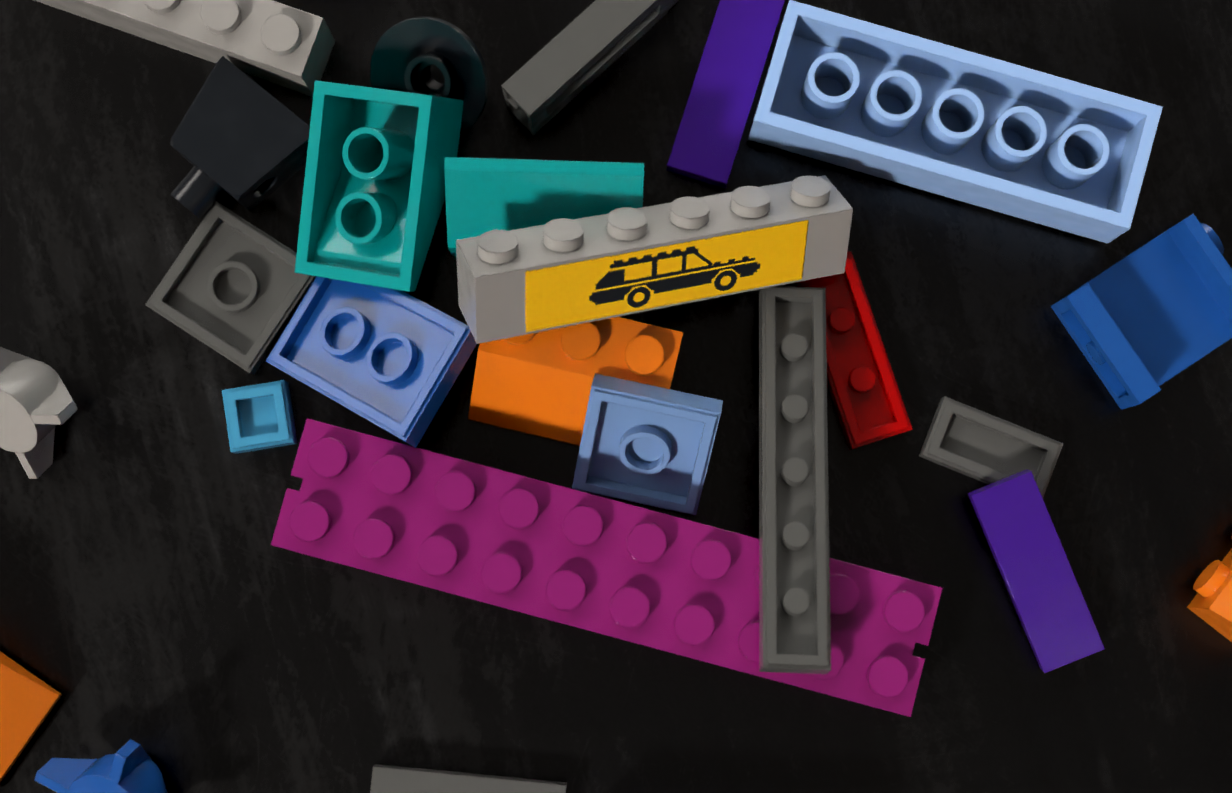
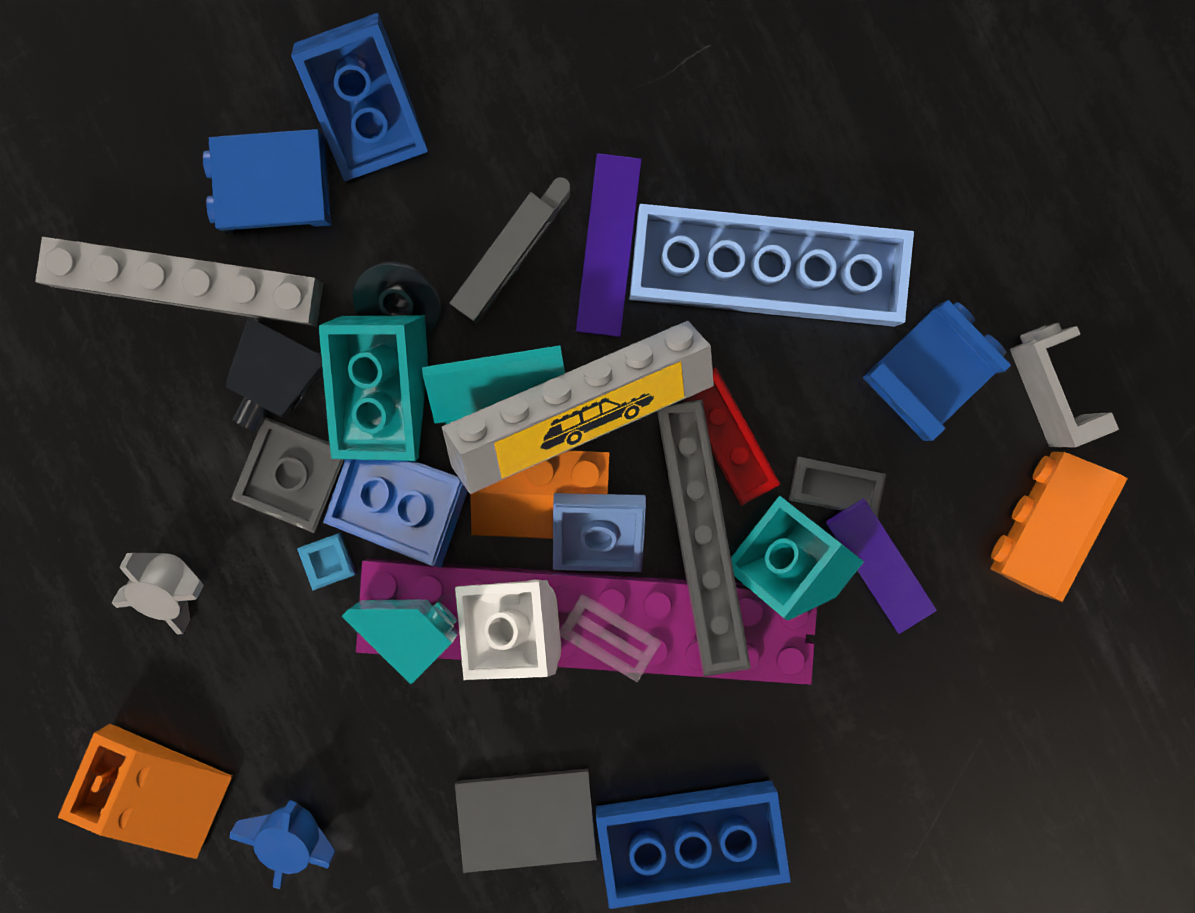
camera: 10 degrees left, 5 degrees up
(344, 521) = (404, 632): none -> teal slope
(493, 548) = (508, 630): none -> white slope
(677, 629) = (642, 657): none -> clear tile
(917, 534) = (793, 562): none -> teal slope

